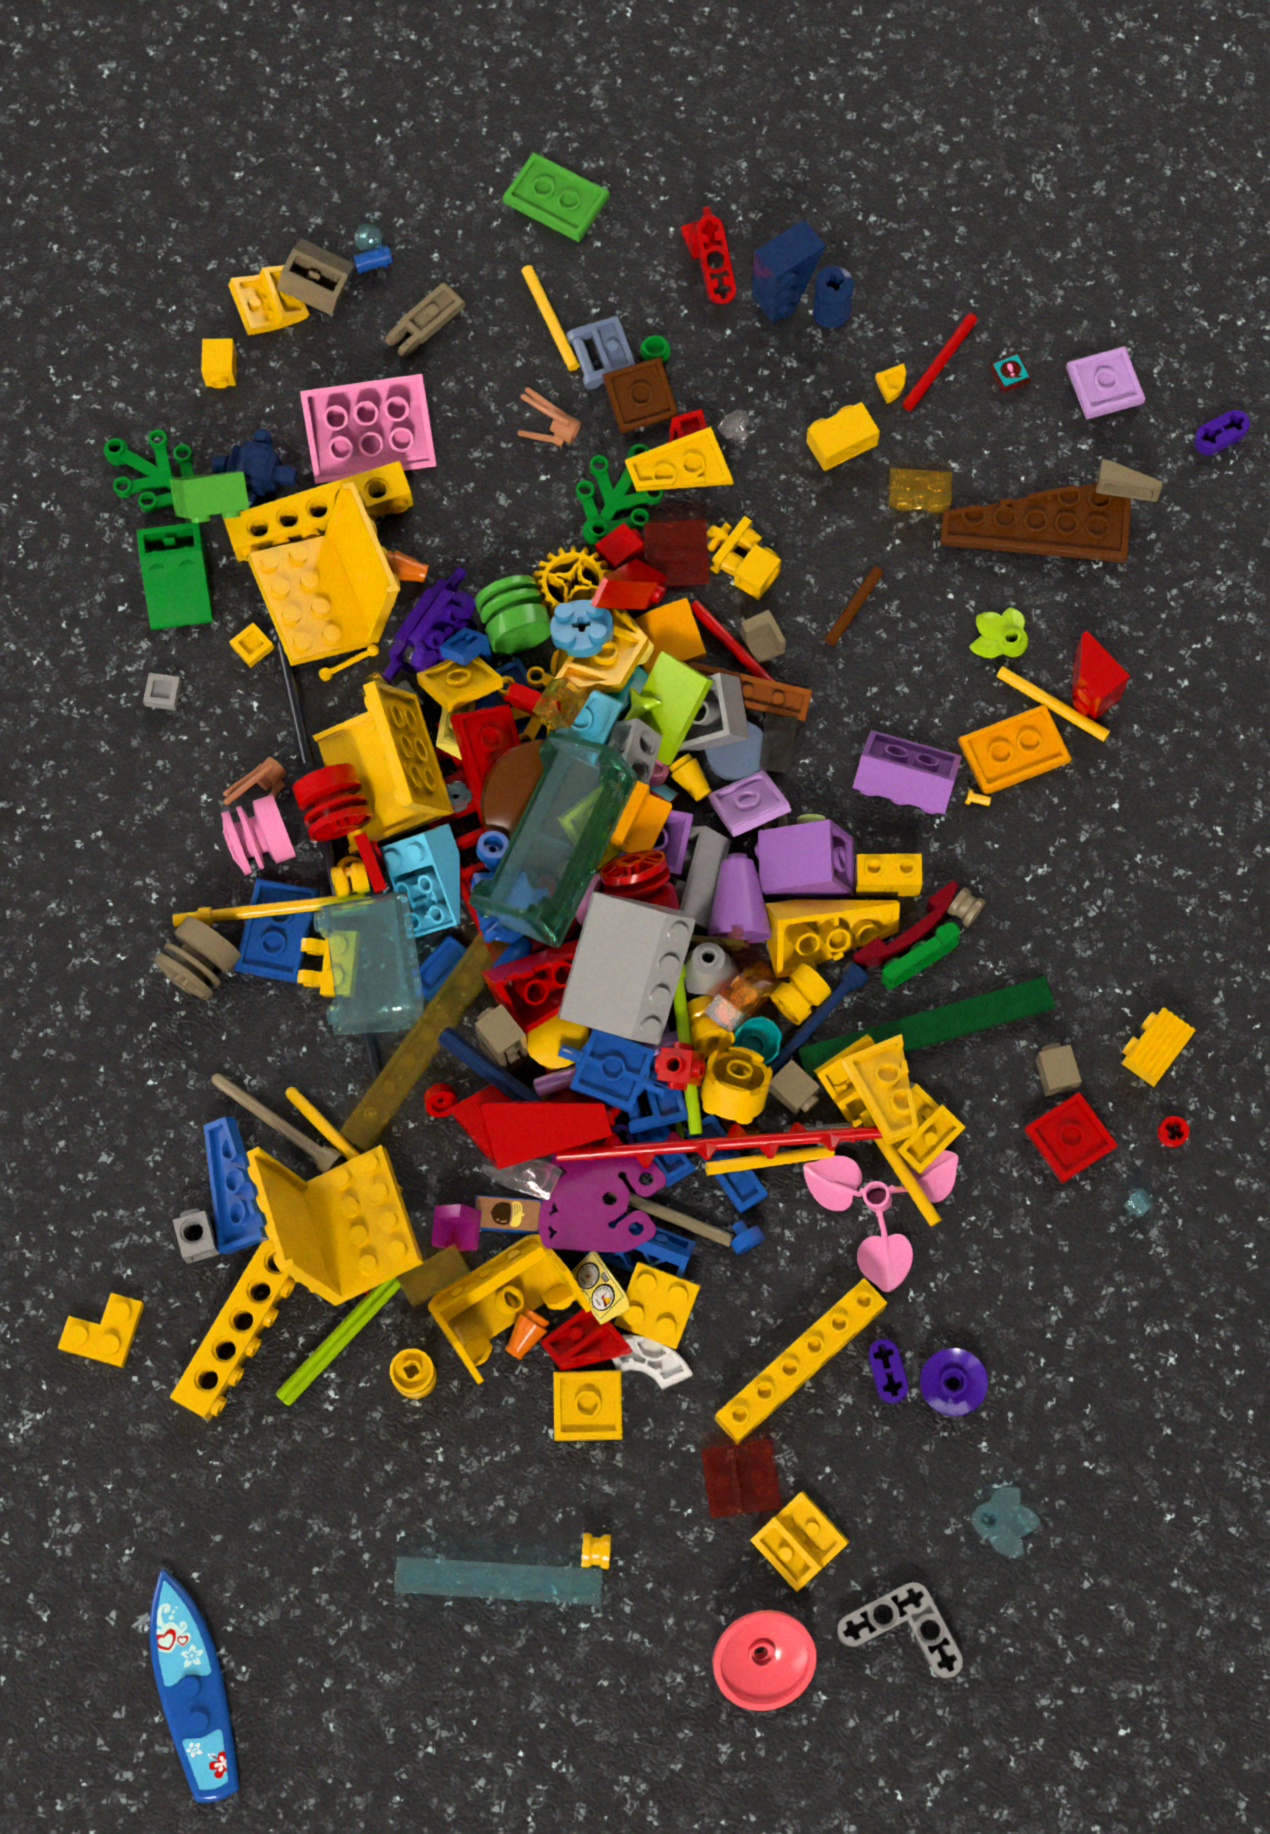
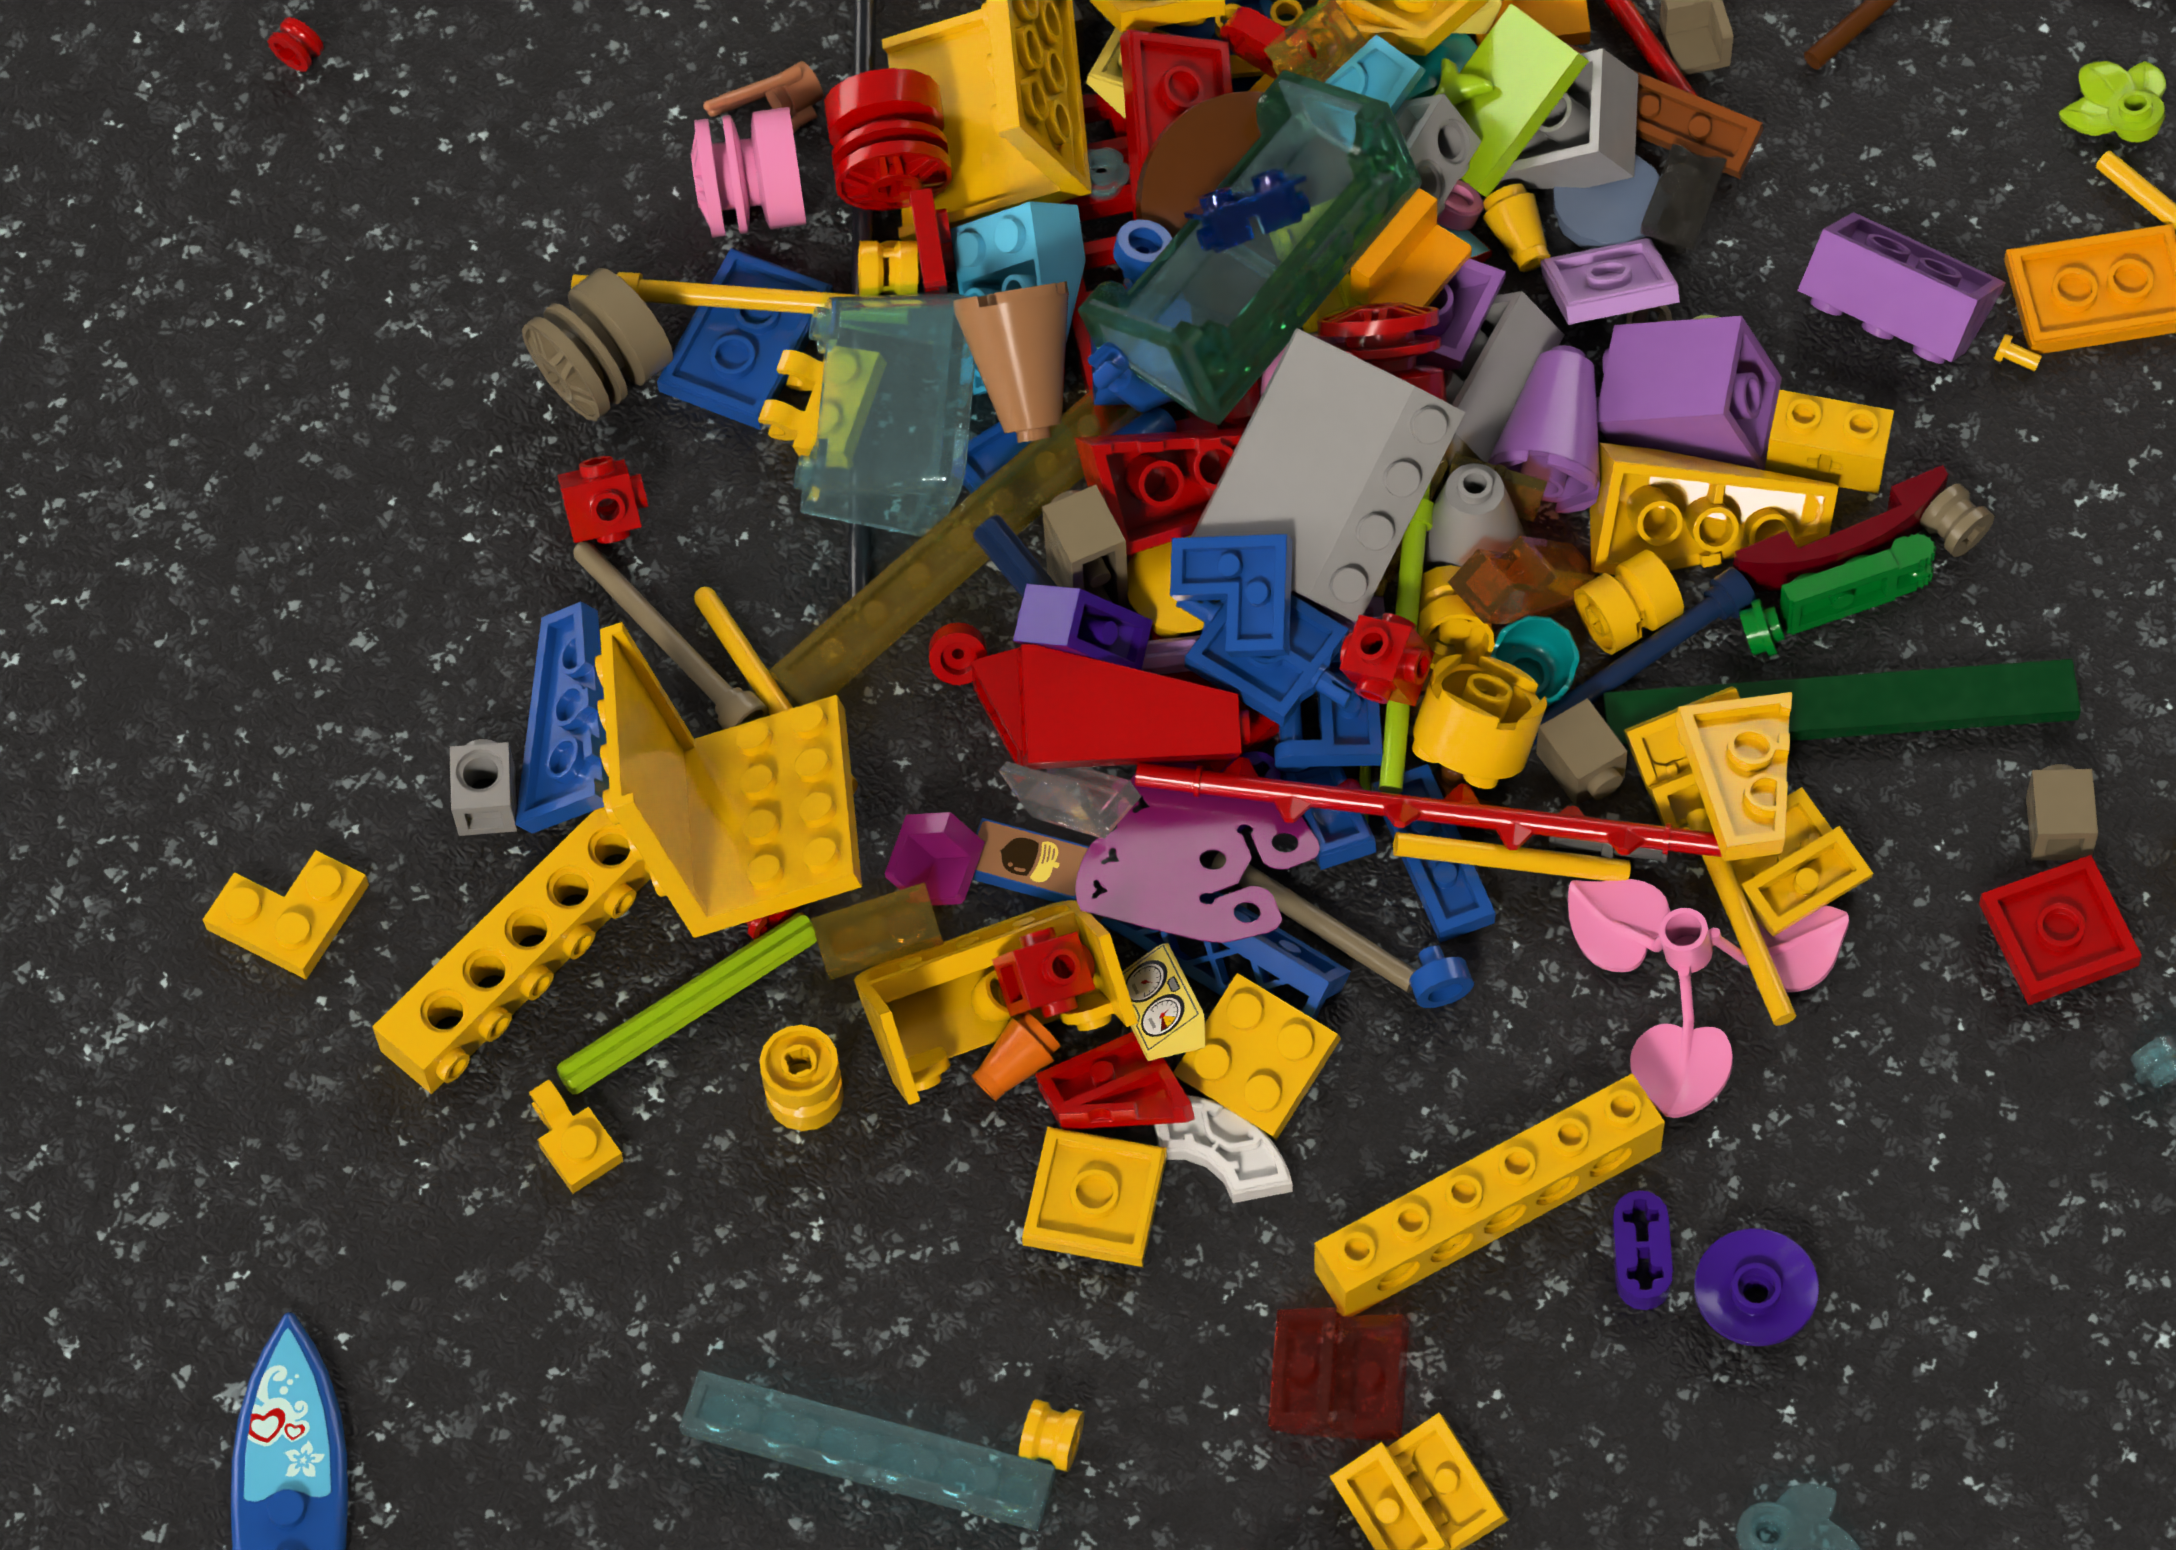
camera: 15 degrees right, 10 degrees down
(221, 1050) = (607, 519): none -> red brick
(297, 1436) = (577, 1143): none -> yellow plate
(438, 923) = (1020, 354): none -> medium nougat cone
(510, 1085) = (1082, 625): none -> dark purple slope
(534, 1287) = (1045, 973): none -> red brick
(559, 807) = (1227, 213): none -> clear blue hinge
(597, 1035) = (1251, 576): none -> blue plate
(875, 993) = (1762, 628): none -> green plate

